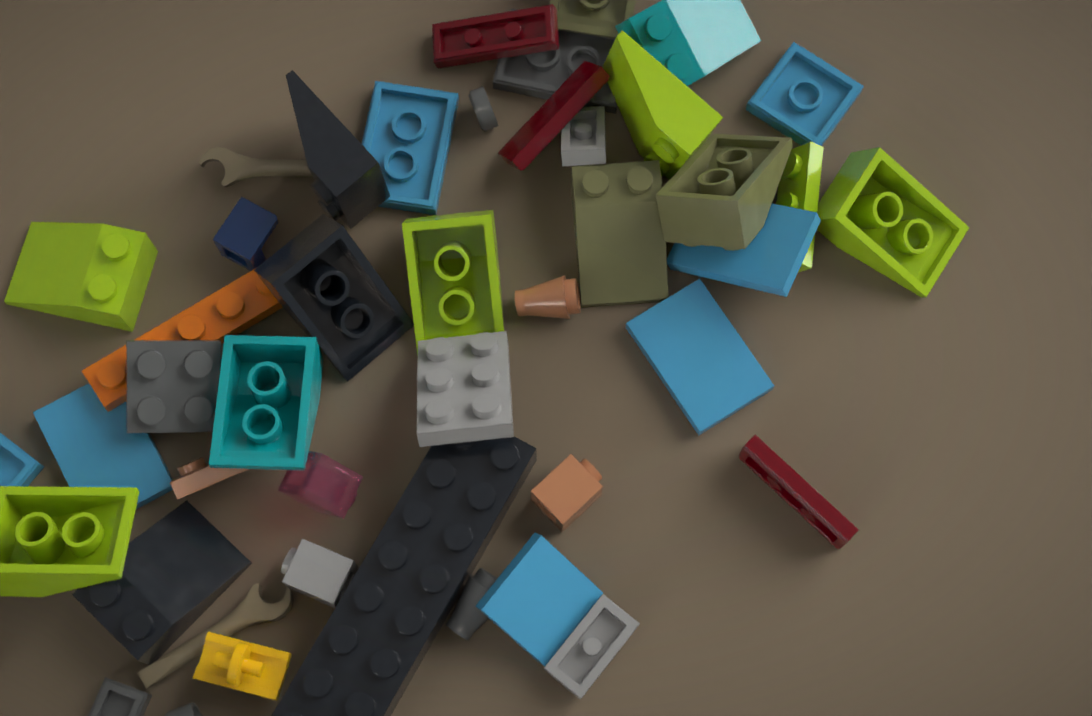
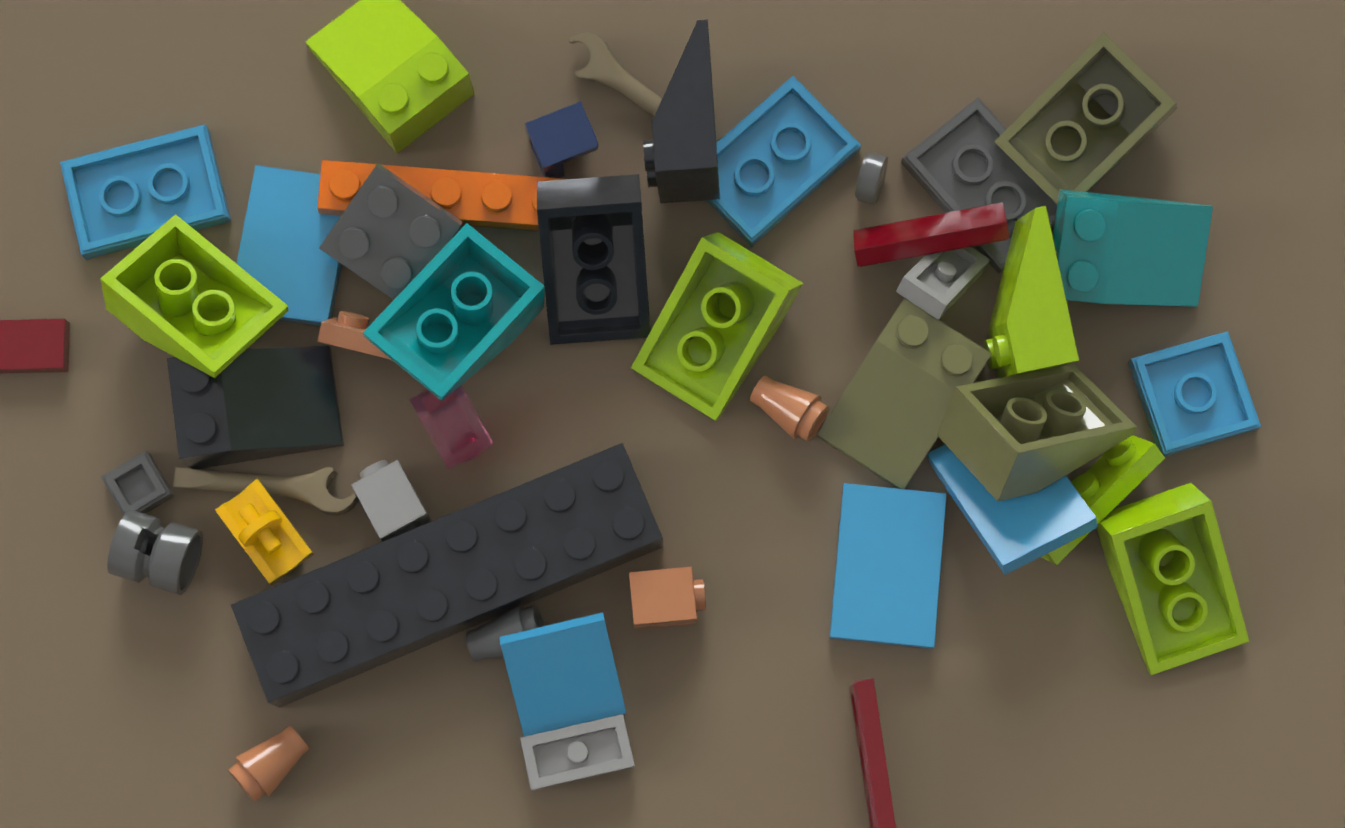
camera: 40 degrees right, 5 degrees up
(464, 389) = (640, 434): light grey plate -> none
(495, 36) = (938, 115): dark red tile -> none

